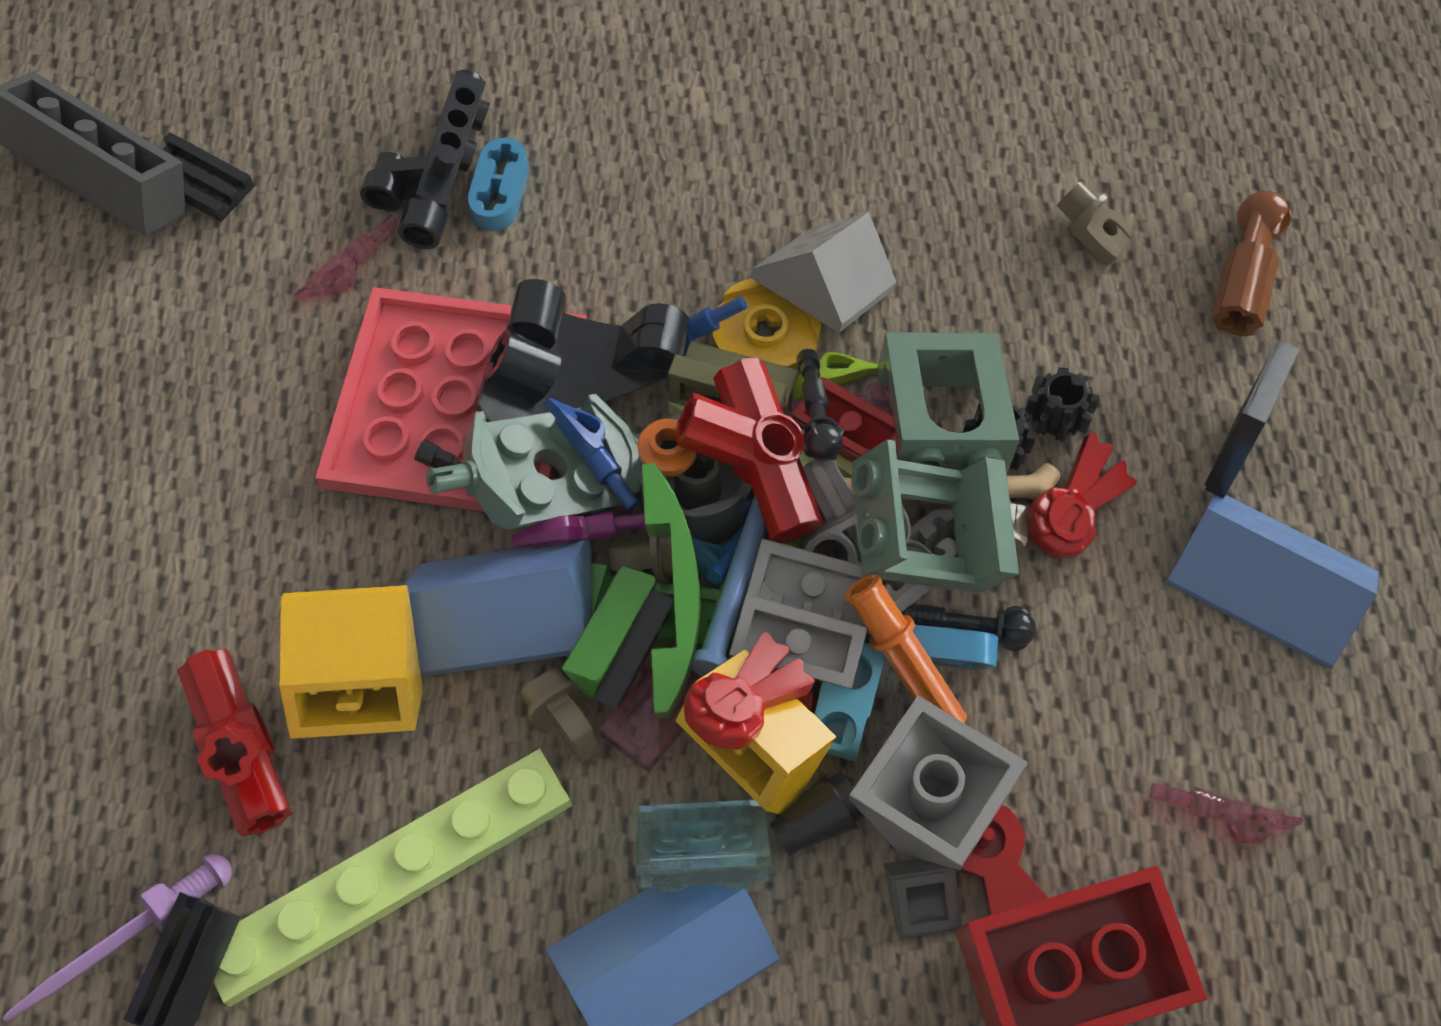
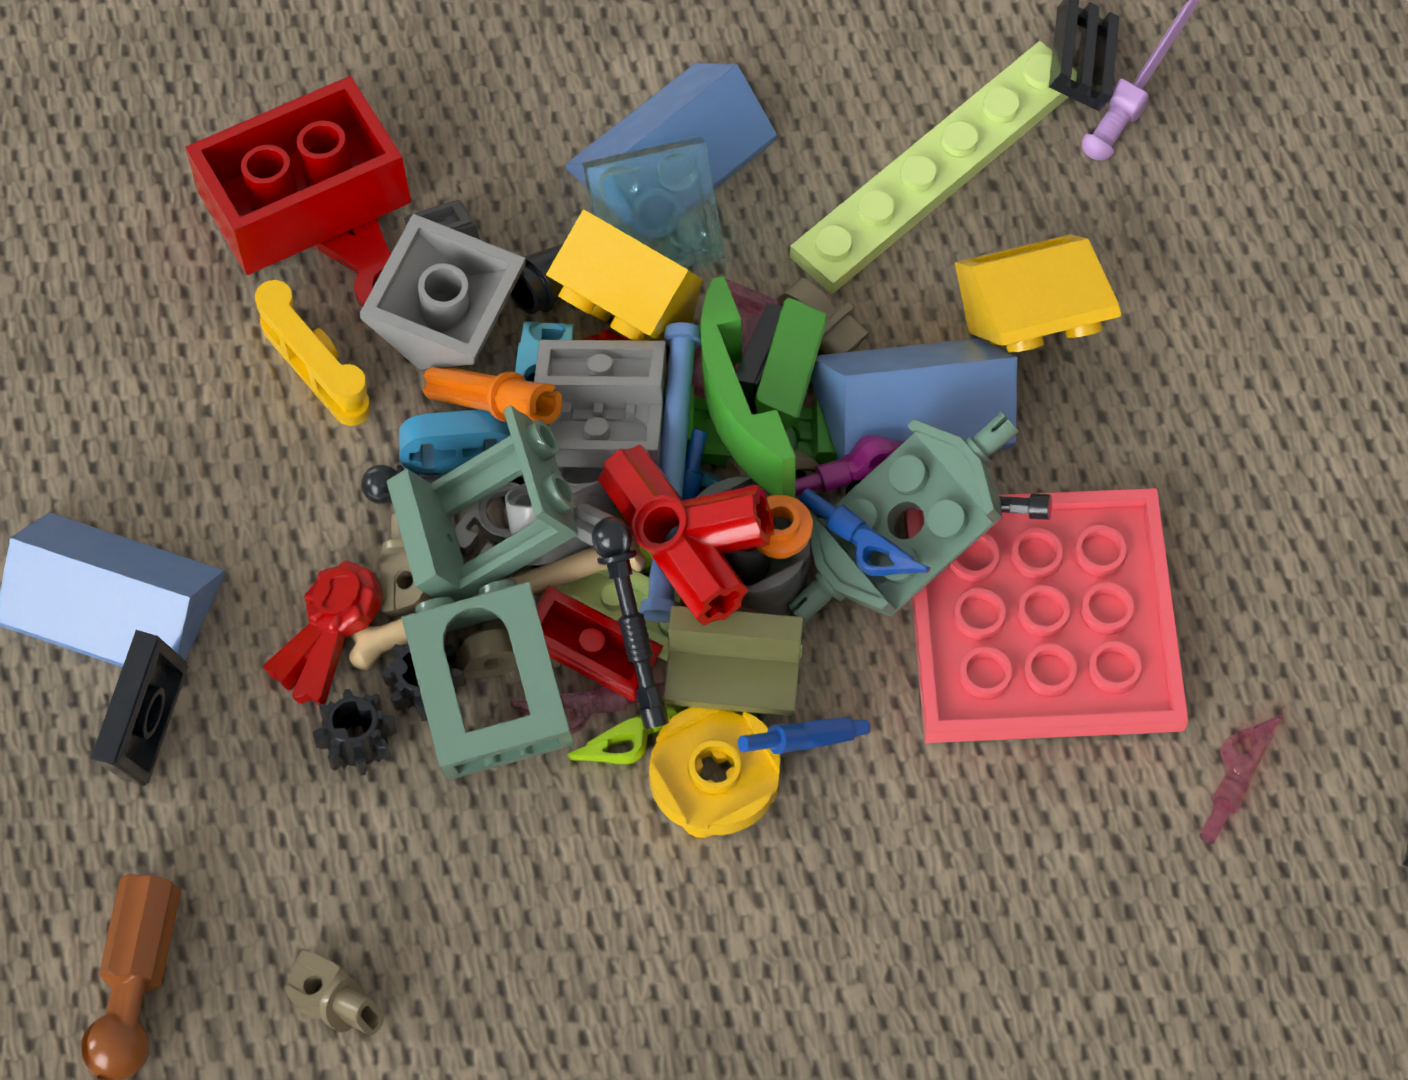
camera: 165 degrees right, 0 degrees up
(233, 742) = (1125, 230): red piece -> none
(430, 178) = (1173, 930): black piece -> none
(487, 182) = (1112, 912): dark azure beam -> none
(573, 357) = (923, 663): black panel -> none
(731, 710) = (650, 247): piece -> none
(831, 271) = (657, 843): light grey slope -> none
(1076, 766) = (312, 355): none -> yellow plate
(1230, 811) = (157, 355): clear pink hand -> none

